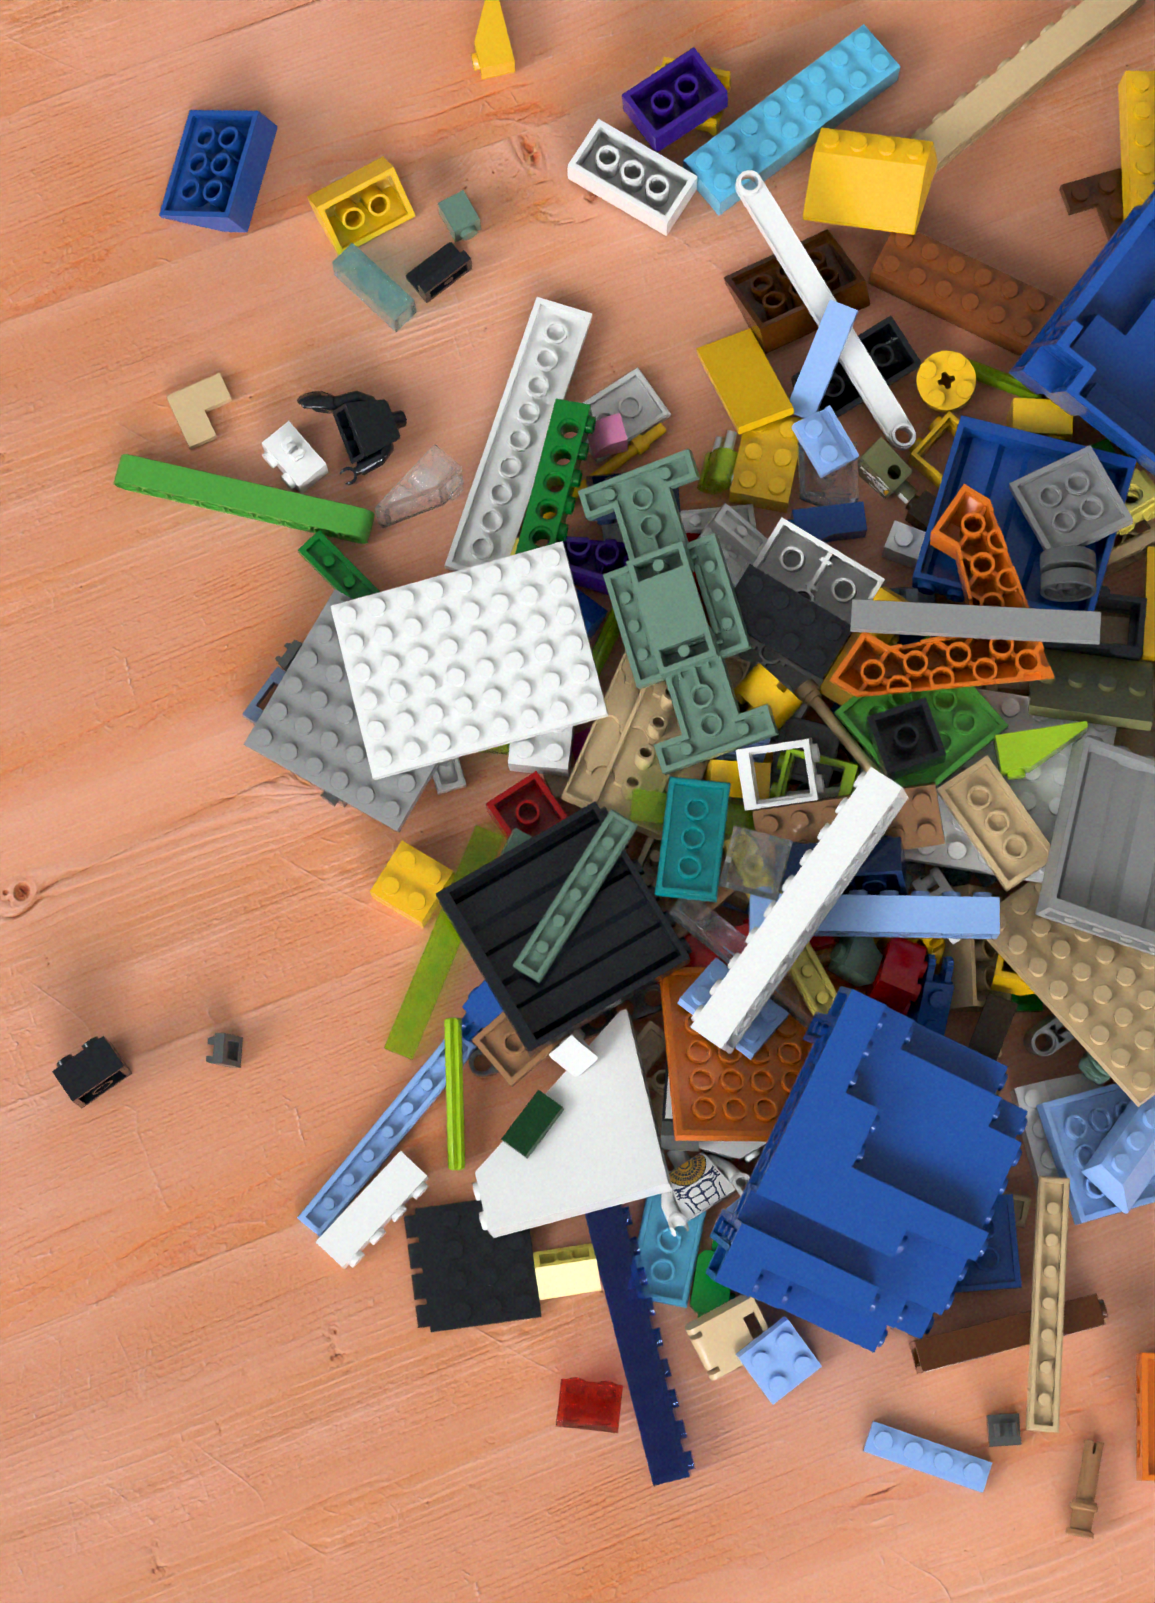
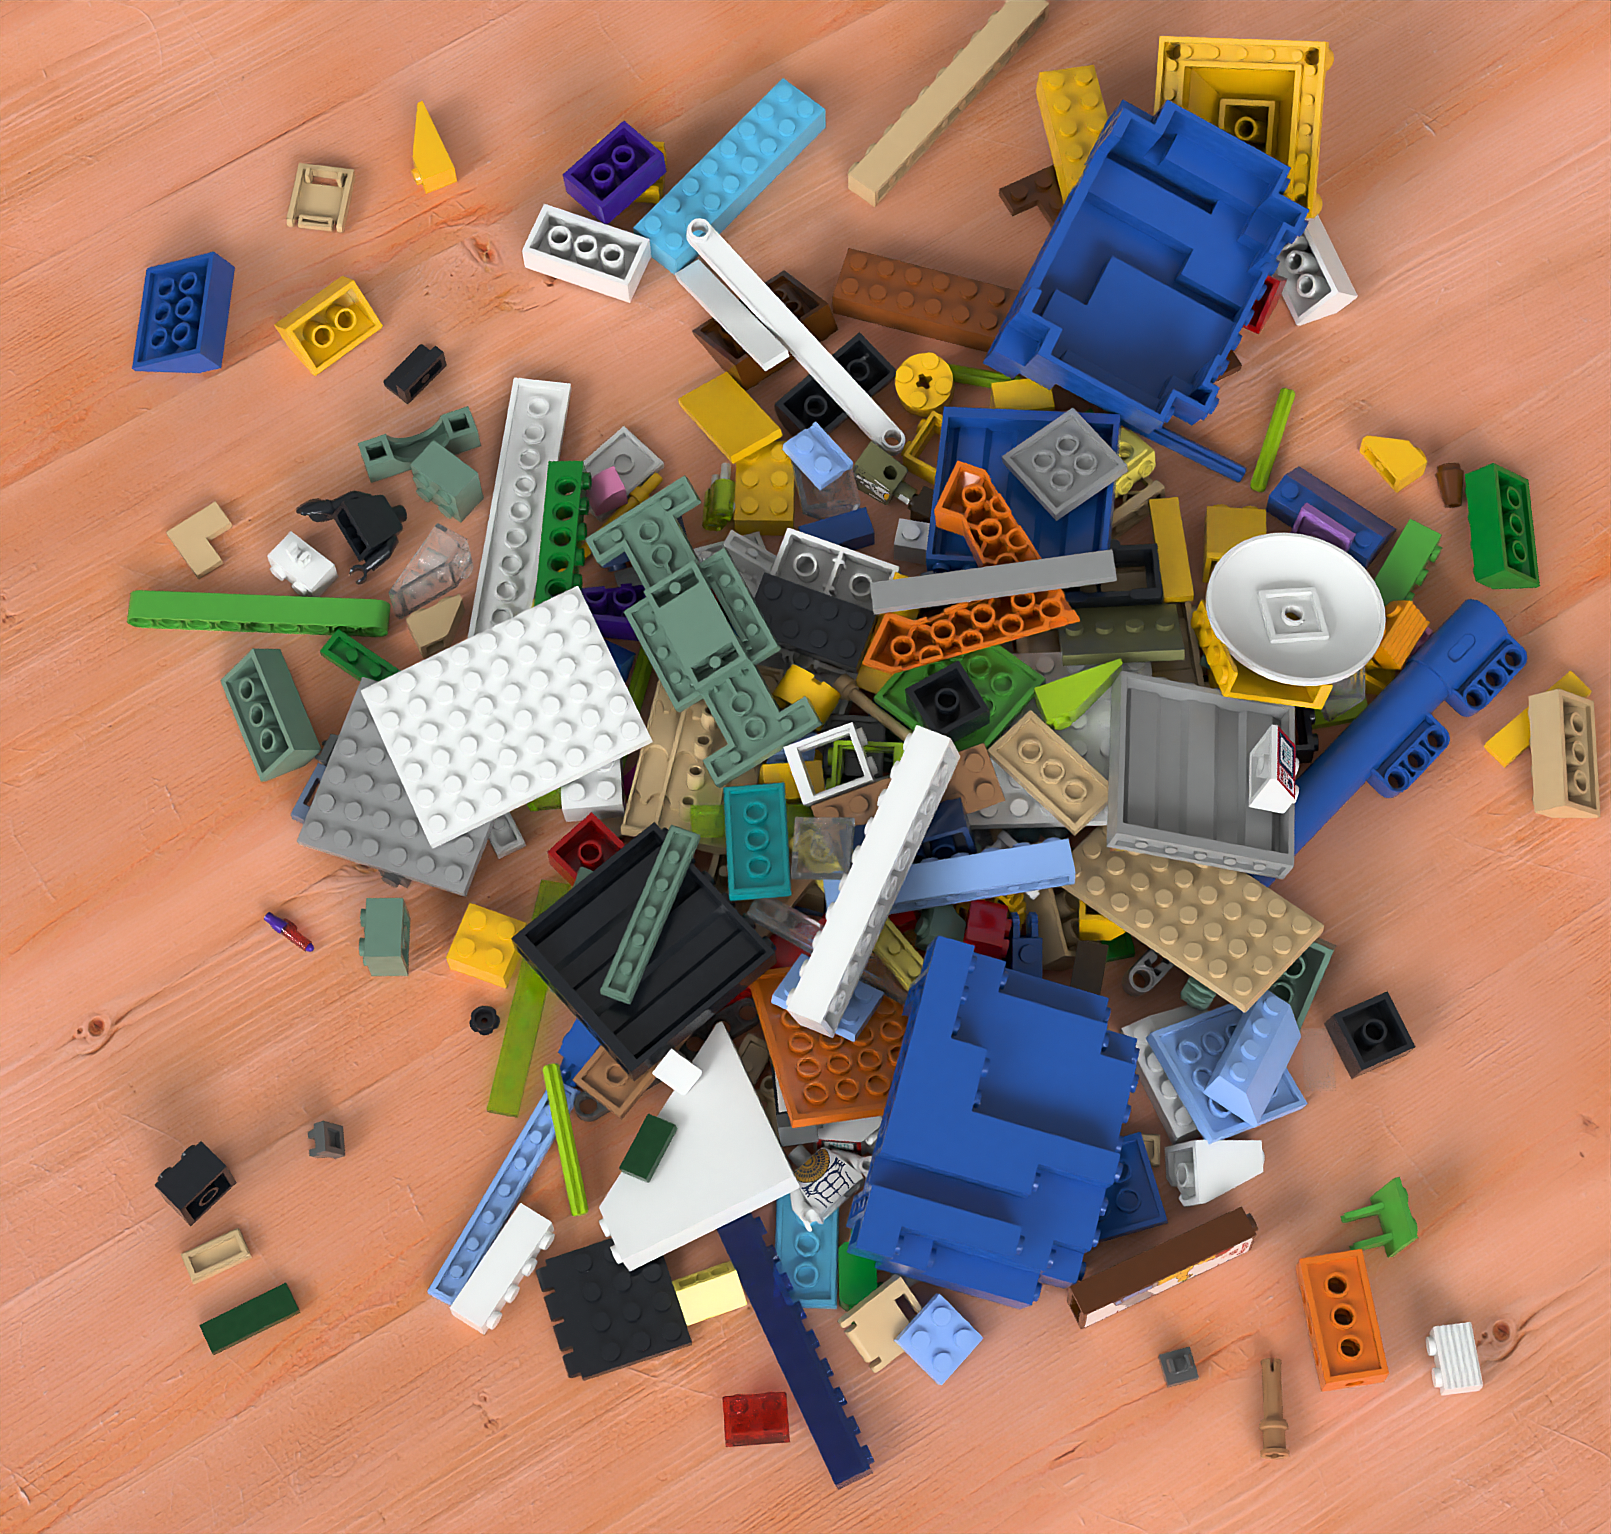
camera: 10 degrees left, 10 degrees down
(101, 1143) = (216, 1256): none -> tan tile
(123, 1211) = (249, 1318): none -> dark green tile
(222, 830) = (289, 930): none -> piece
(239, 605) = (270, 713): none -> sand green slope
(314, 859) = (386, 936): none -> sand green brick
(374, 72) = (321, 205): none -> tan container
(374, 287) = (353, 396): clear light blue brick -> none
(393, 950) = (481, 1013): none -> black plate
(403, 358) = (390, 456): none -> sand green arch
(416, 545) = (436, 626): none -> tan slope
(451, 397) = (446, 482): none -> sand green brick
(459, 216) = (425, 318): sand green brick -> none
(766, 273) = (732, 315): none -> white tile
(822, 358) = (800, 379): light blue tile -> none
(869, 180) = (815, 215): yellow slope -> none
(927, 1456) = (1107, 1408): light blue plate -> none
(1047, 1304) = (1195, 1225): tan tile -> none
(1068, 573) = (1074, 524): dark grey wheel -> none
(1090, 1244) = (1210, 1170): none -> white slope

